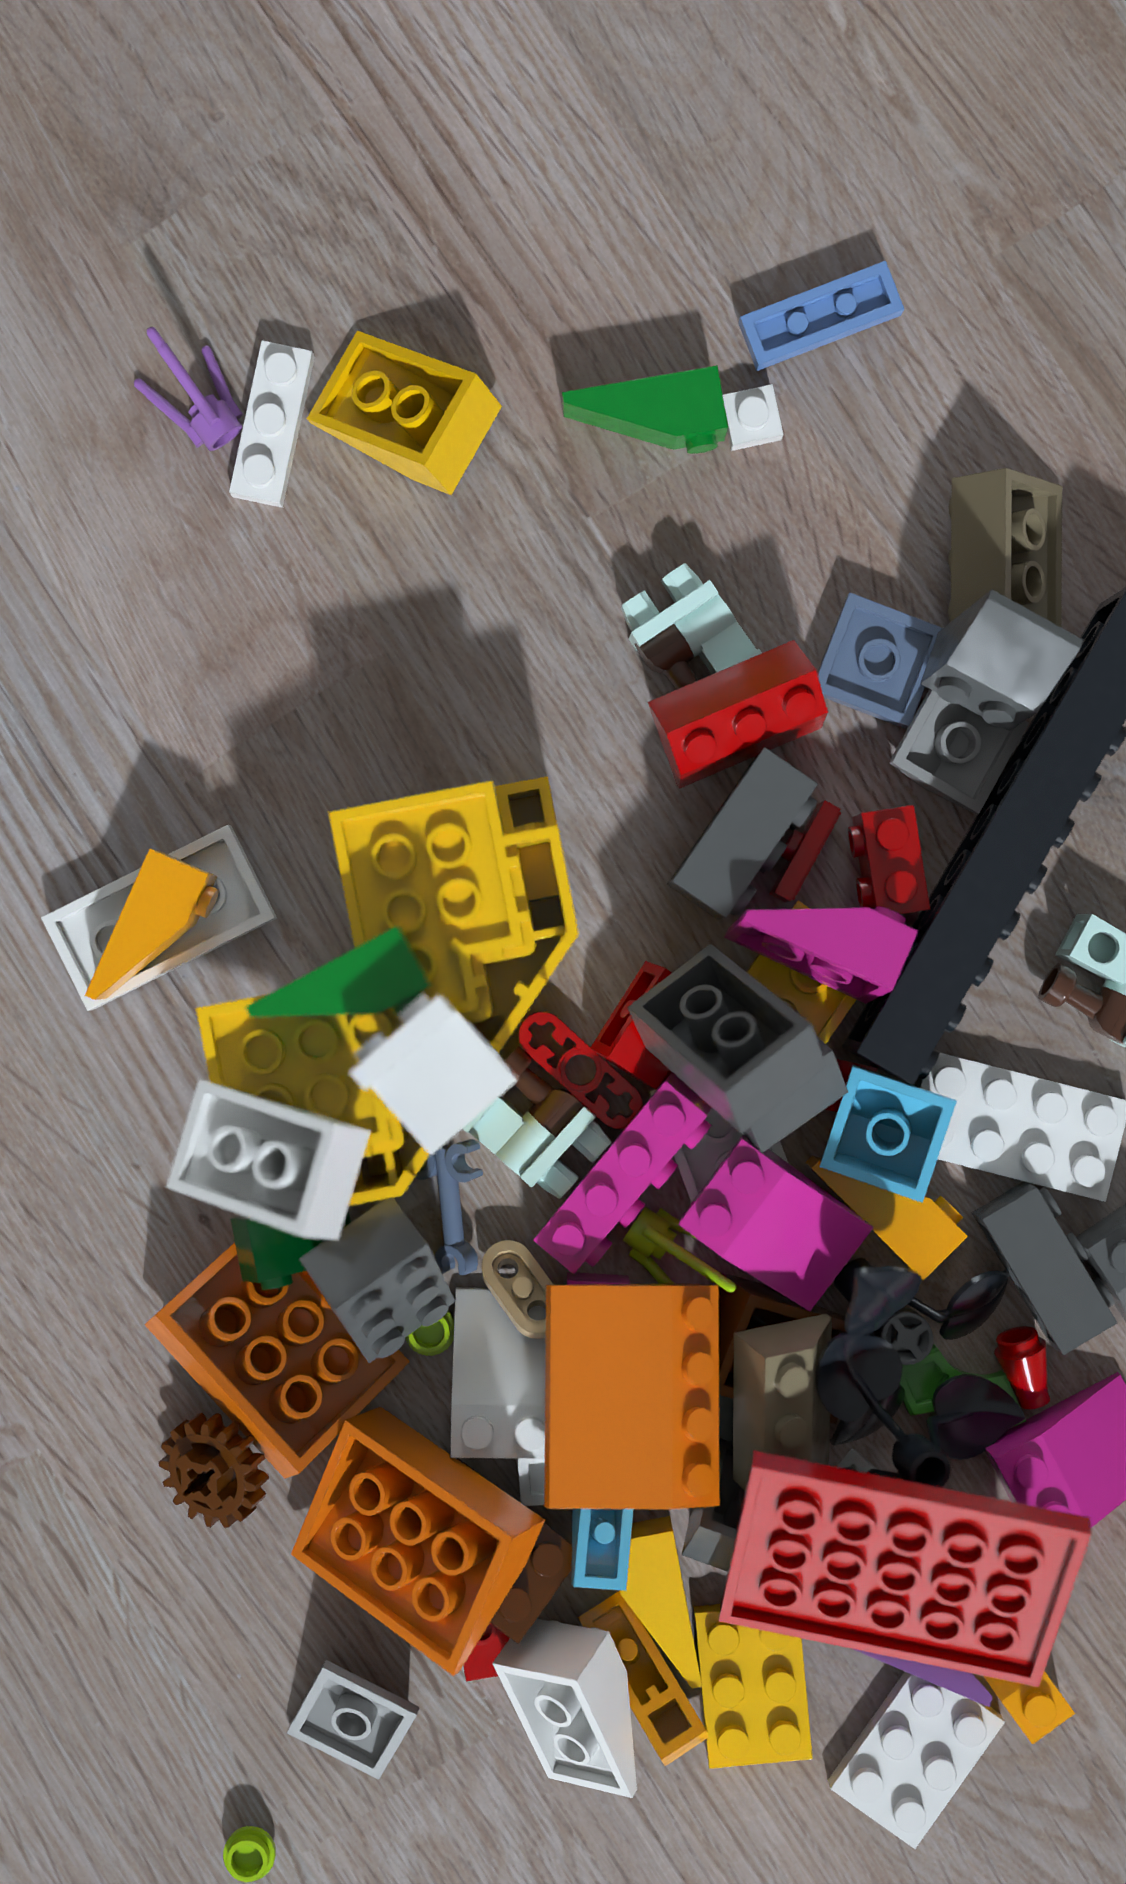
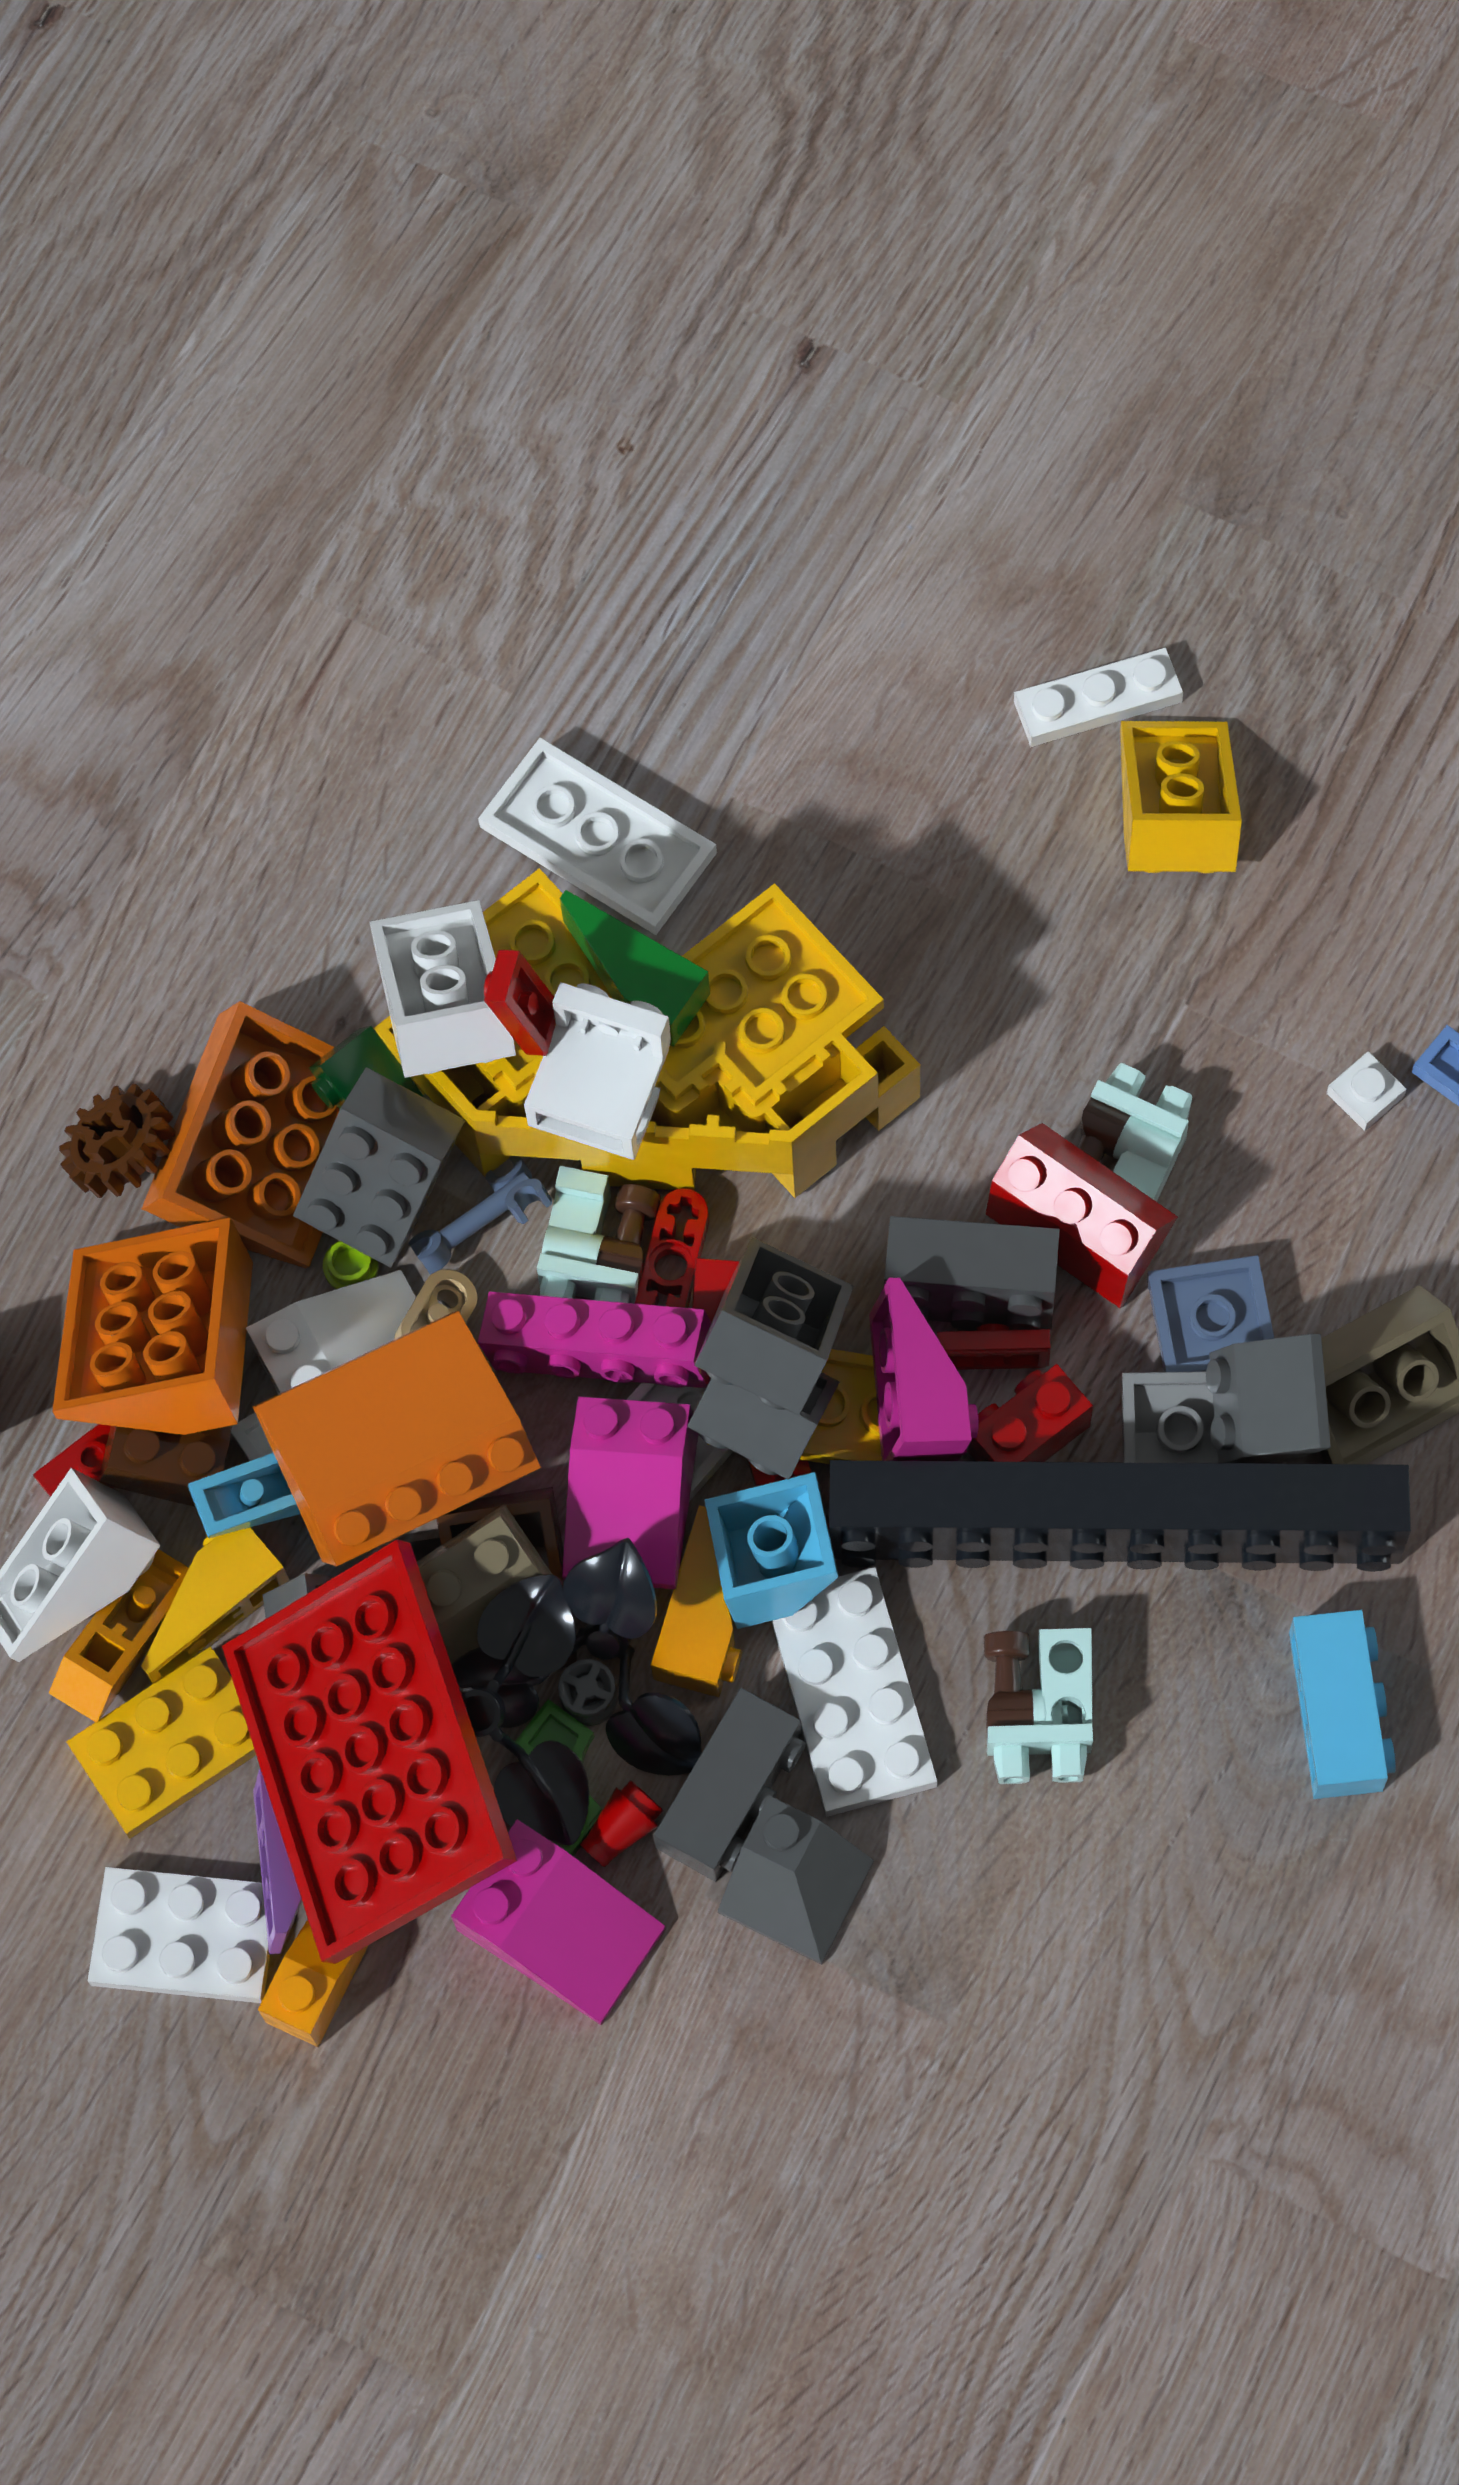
camera: 65 degrees right, 20 degrees down
(158, 912) = (598, 821): light orange slope -> none
(212, 420) = (1069, 645): medium lavender plant -> none
(346, 1118) = (521, 1002): none -> red plate
(652, 1236) = (551, 1413): lime plant -> none
(664, 409) = (1324, 1011): green slope -> none

